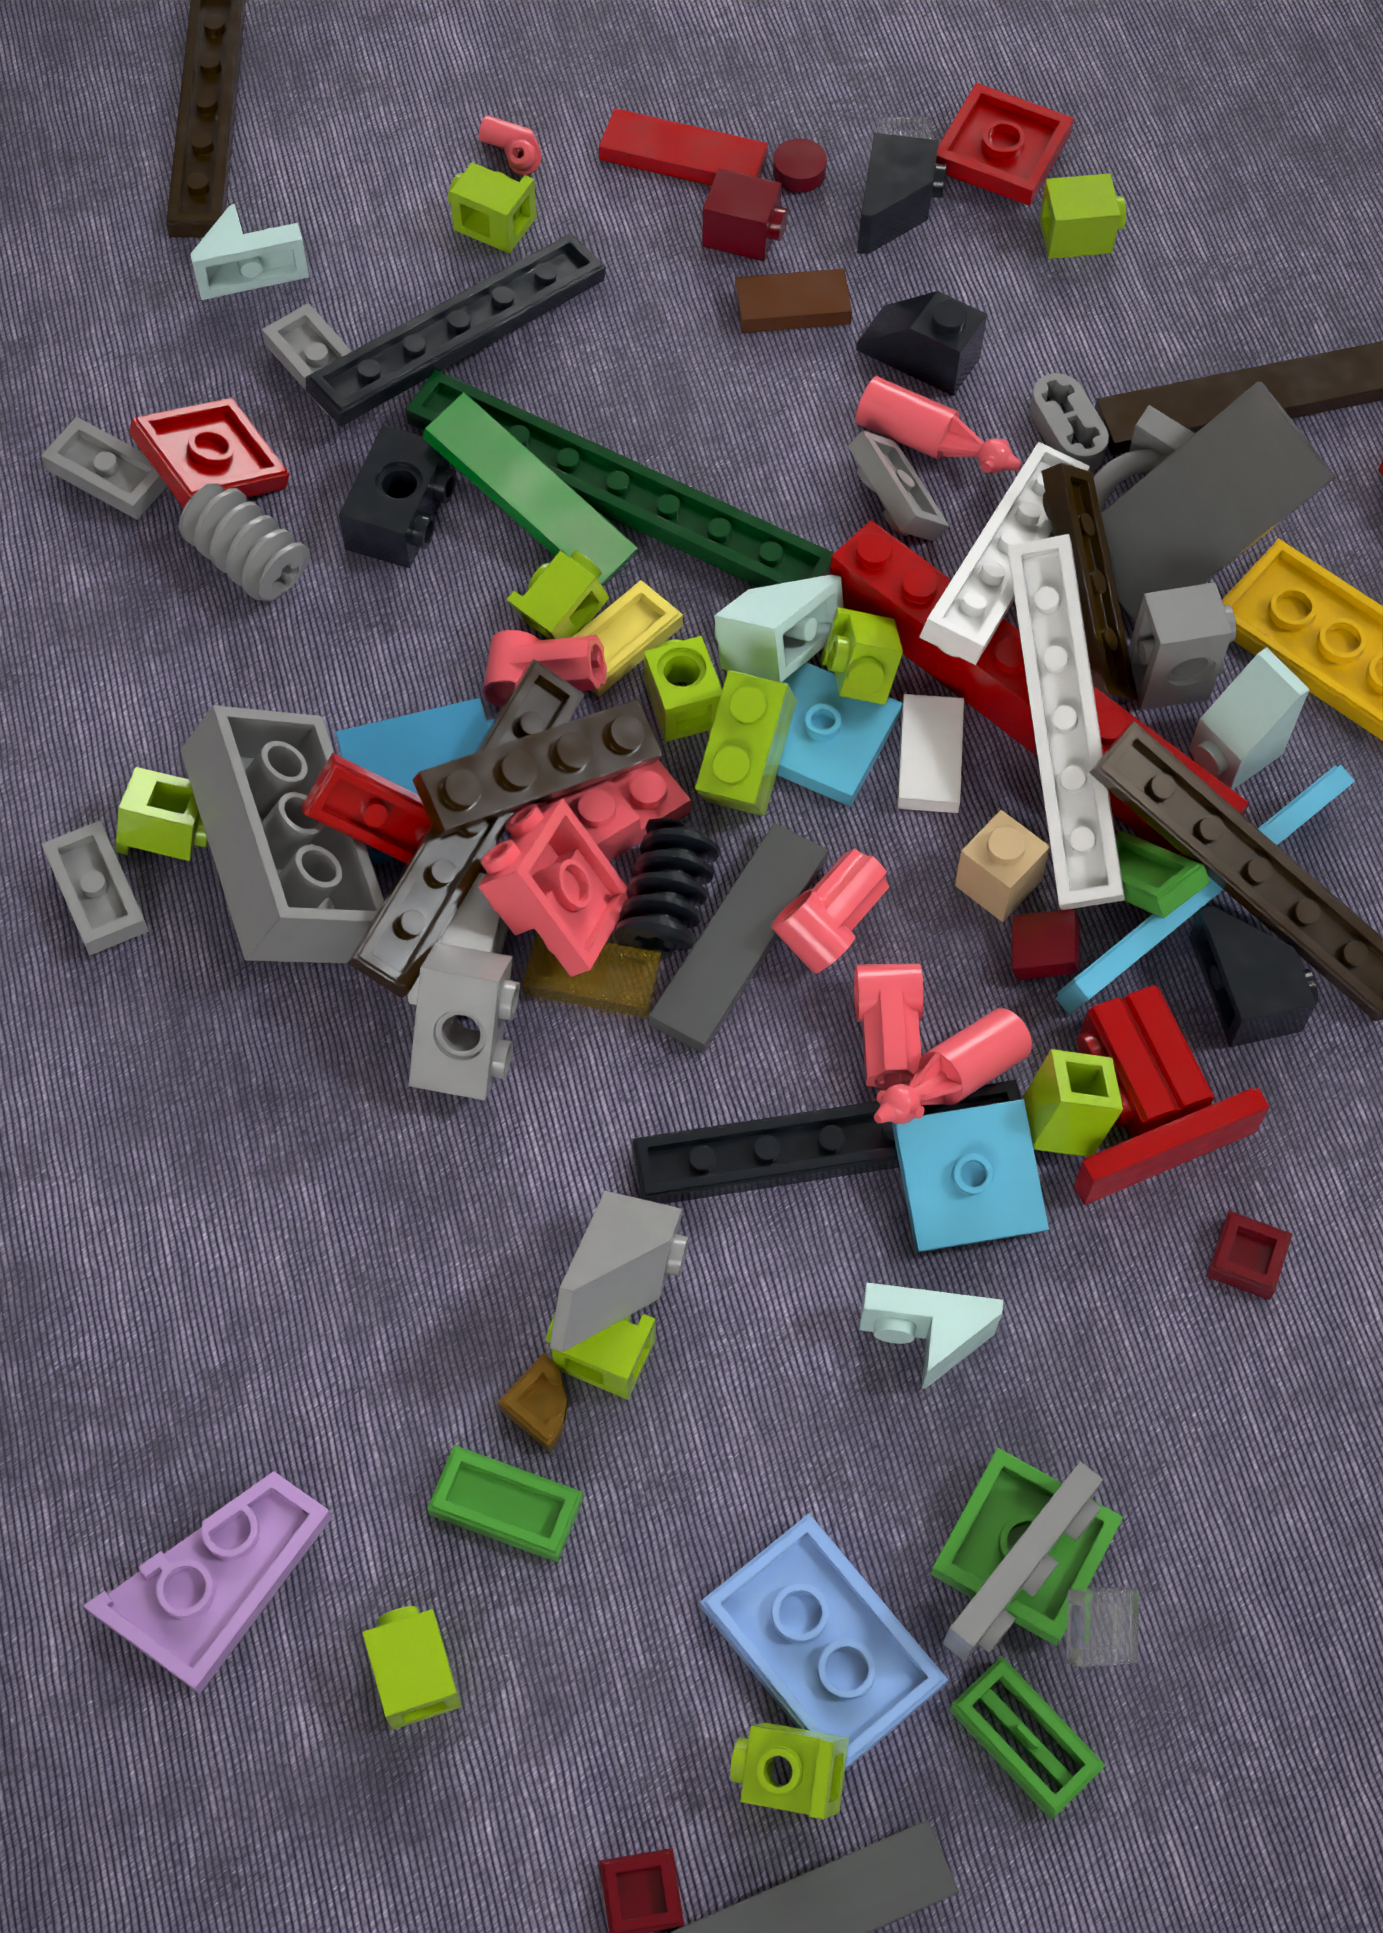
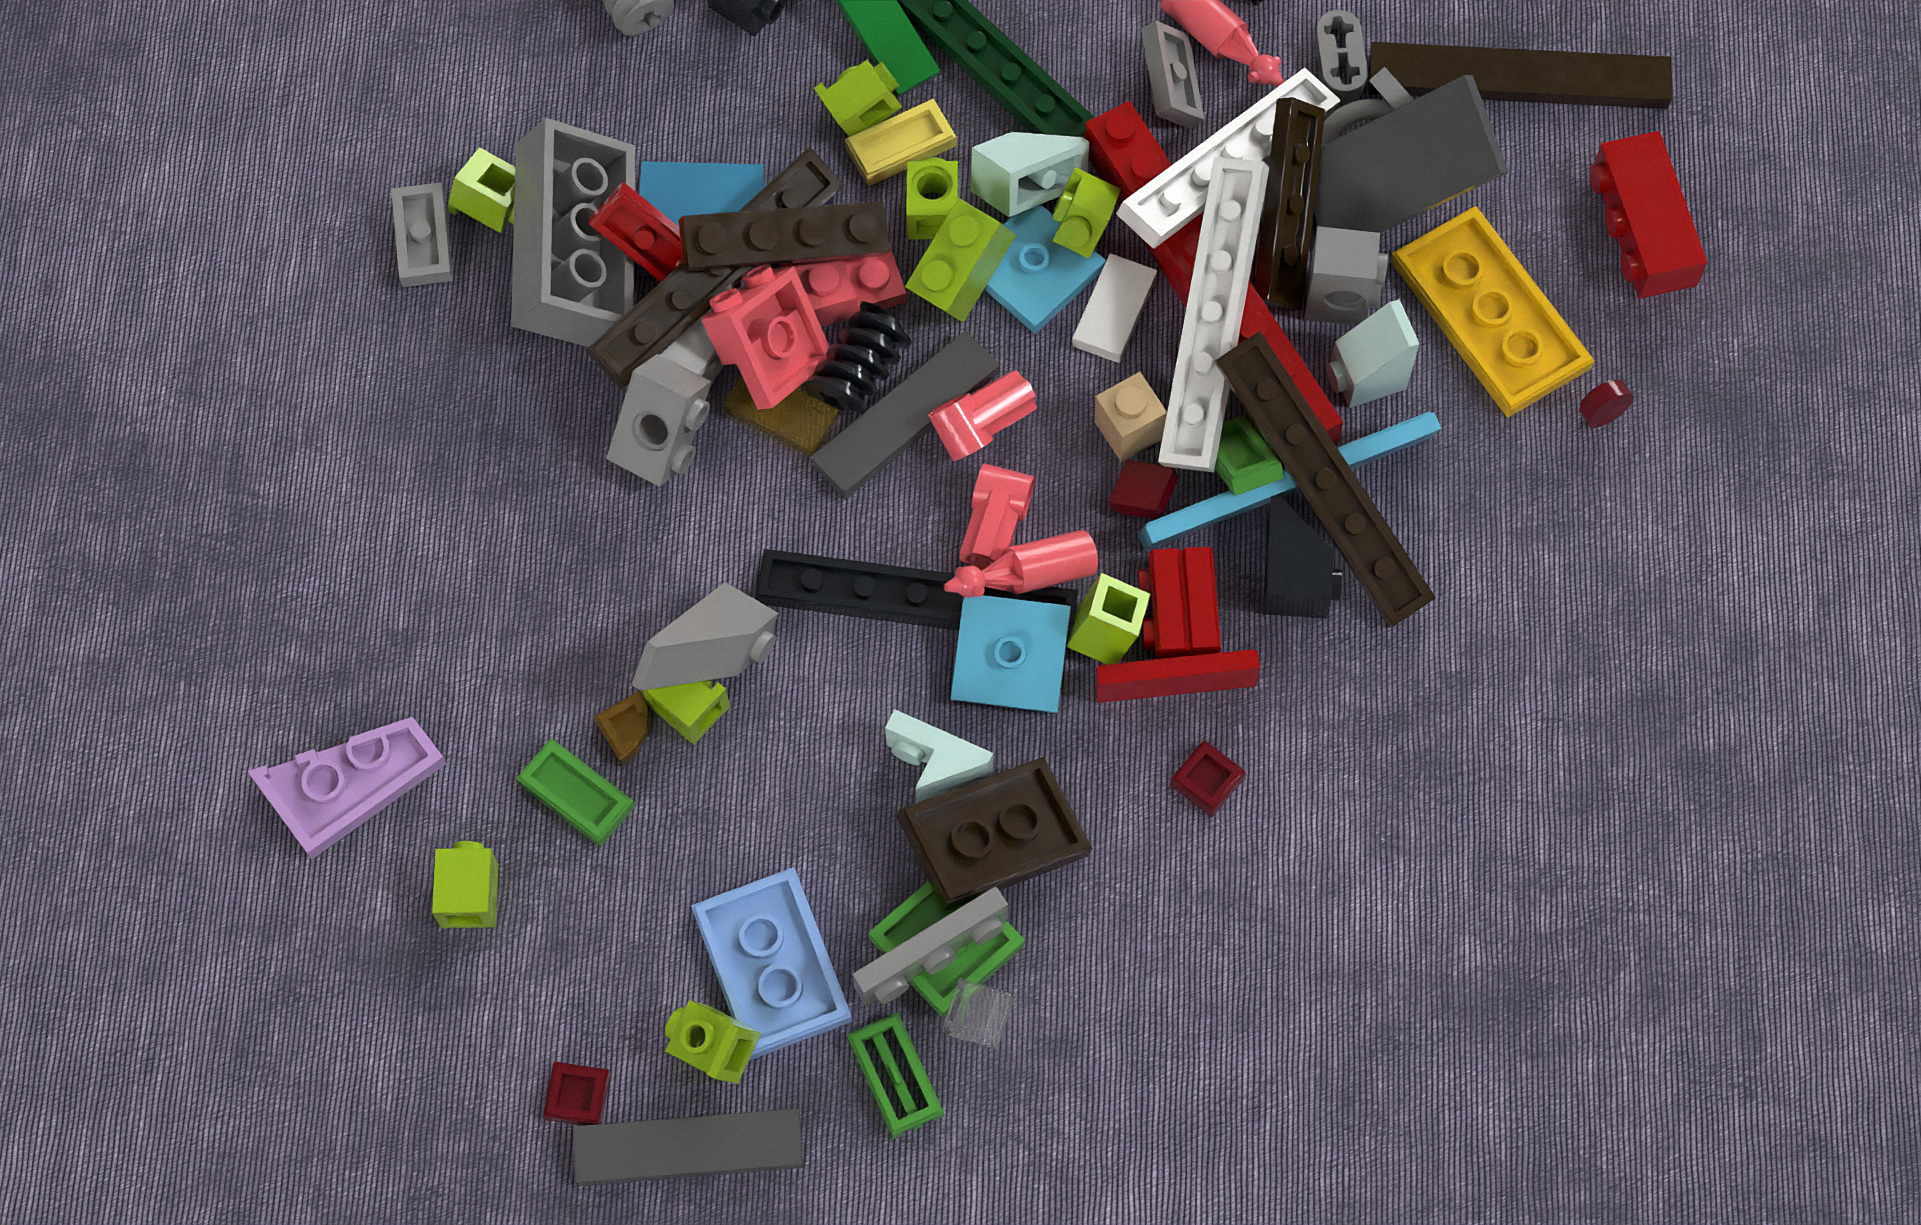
camera: 20 degrees right, 5 degrees up
(574, 659) = (845, 153): coral piece -> none
(1034, 1398) = (994, 833): none -> dark brown tile

